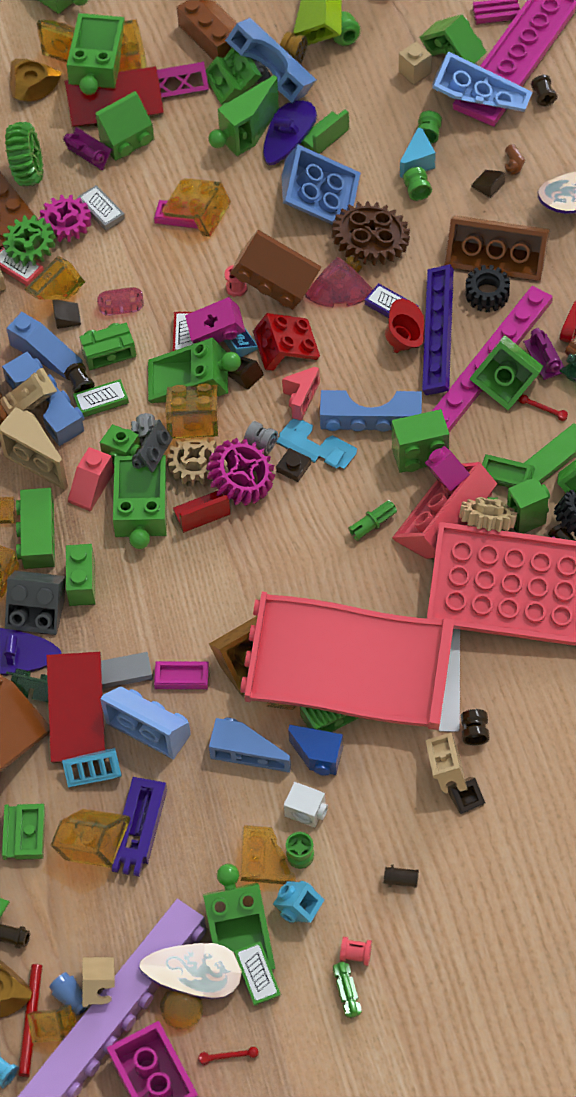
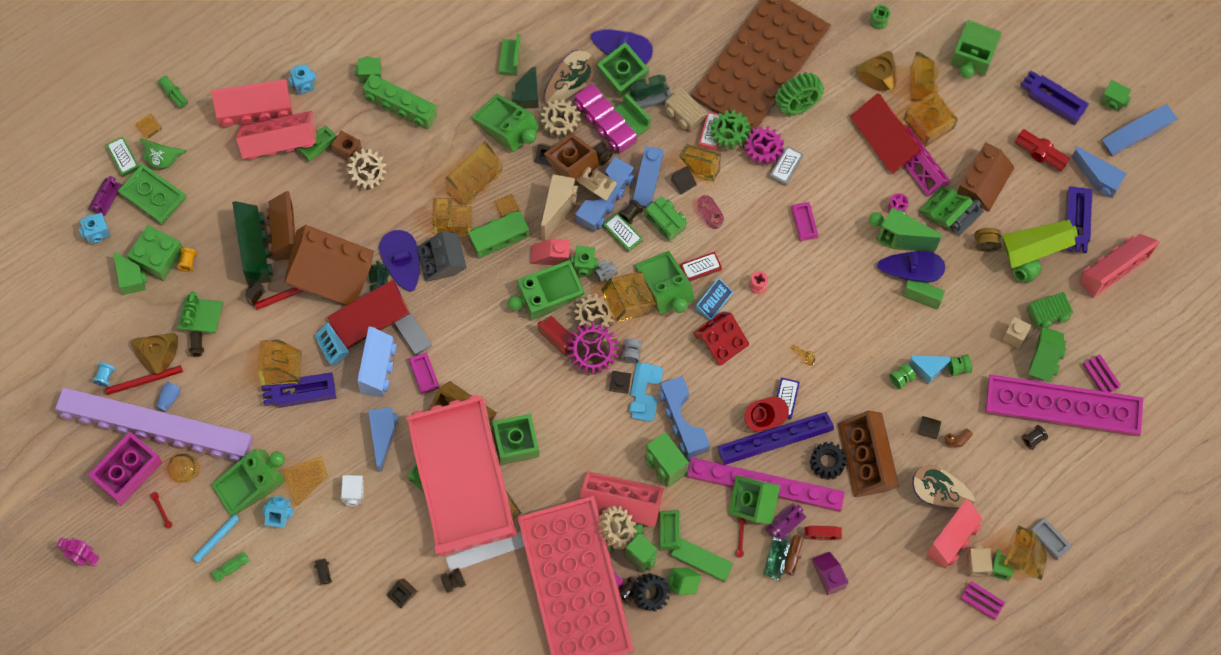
camera: 60 degrees right, 10 degrees up
(23, 831) = (270, 321): bright green plate -> none
(51, 1024) = (141, 395): clear yellow bracket -> none
(80, 575) = (472, 277): bright green brick -> none
(87, 148) = (832, 137): magenta hinge -> none
(95, 52) = (910, 99): bright green slope -> none
(96, 974) = (177, 406): tan hinge -> none
(124, 126) = (859, 151): bright green slope -> none
(152, 447) = (584, 282): dark grey hinge -> none
(194, 969) = (205, 465): shield -> none
(200, 201) = (814, 229): clear yellow bracket -> none
(206, 117) = (898, 200): none -> dark pink wheel
(215, 321) = (707, 282): dark pink brick -> none
(247, 373) = (685, 320): dark brown slope -> none
(255, 43) = (972, 209): medium blue arch -> none
(257, 973) = (221, 505): tile -> none
(275, 269) = (767, 304): dark orange slope -> none
(299, 843) = (316, 495): bright green wheel -> none
(299, 997) = (215, 539): none -> medium azure bar
(301, 388) = (686, 364): coral slope -> none
(317, 748) = (396, 483): blue slope -> none
(318, 184) = (865, 308): medium blue slope -> none
(323, 582) = (515, 439): none -> bright green brick
(338, 284) = (786, 355): clear pink brick -> none
(355, 951) = (258, 568): coral bush -> none
(370, 233) = (825, 365): reddish brown gear -> none
(372, 520) = (594, 452): bright green axle -> none
(402, 25) = (1050, 310): none -> bright green brick
(446, 468) = (647, 485): dark pink slope -> none
(446, 761) = (414, 570): tan hinge -> none
(475, 84) = (1006, 384): light blue wedge -> none

